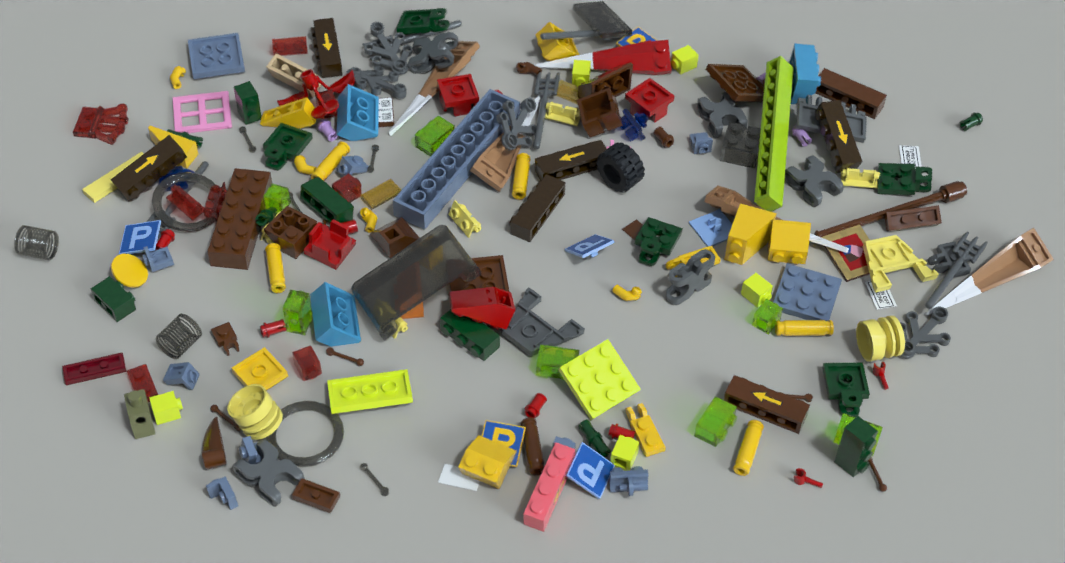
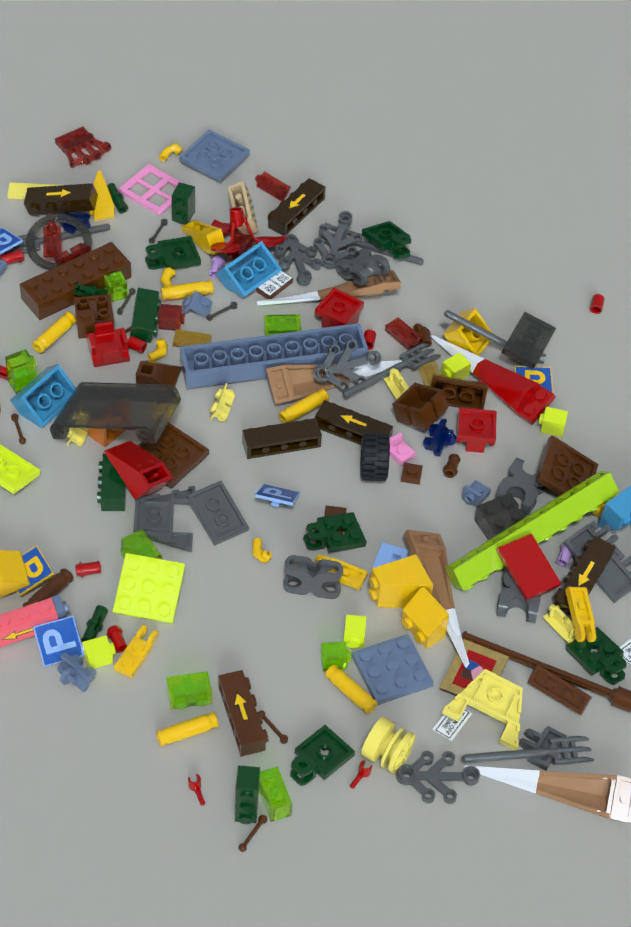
camera: 45 degrees right, 0 degrees up
(516, 77) = (403, 333): none -> clear red plate
(567, 291) = (217, 513): none -> dark grey tile
(649, 162) = (411, 473): none -> reddish brown plate
(805, 156) = (528, 567): none -> red tile
(871, 159) = (581, 613): none -> yellow hinge

